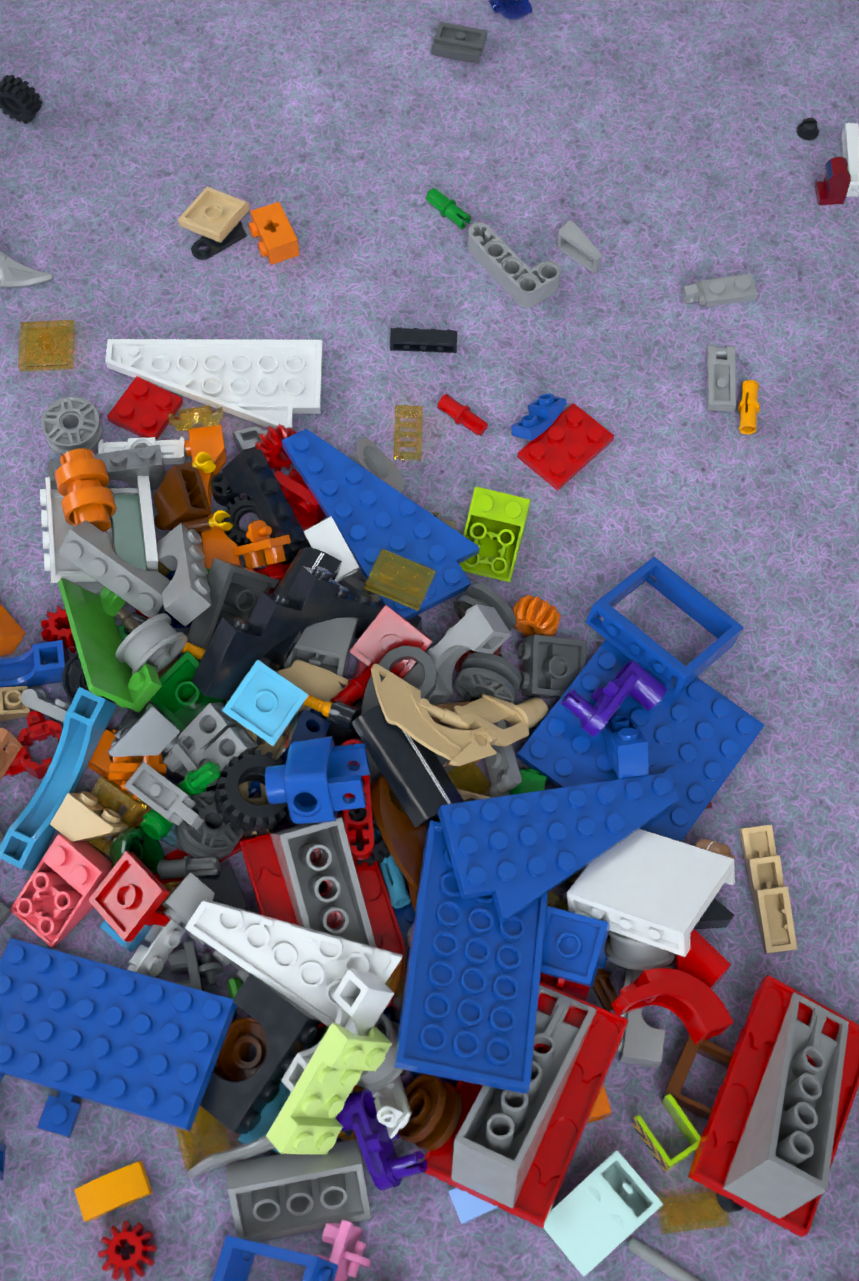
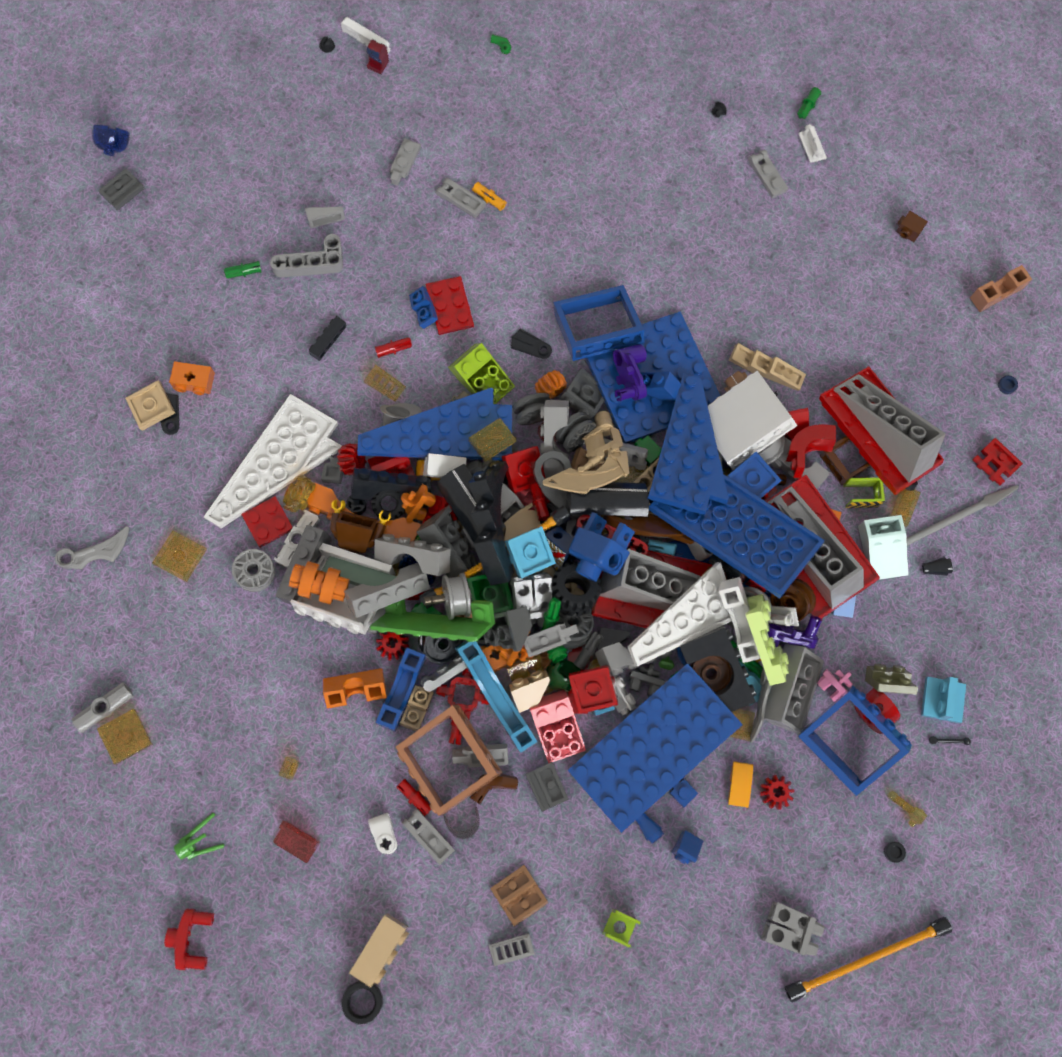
camera: 65 degrees left, 10 degrees up
(580, 567) = (529, 344): none -> black piece

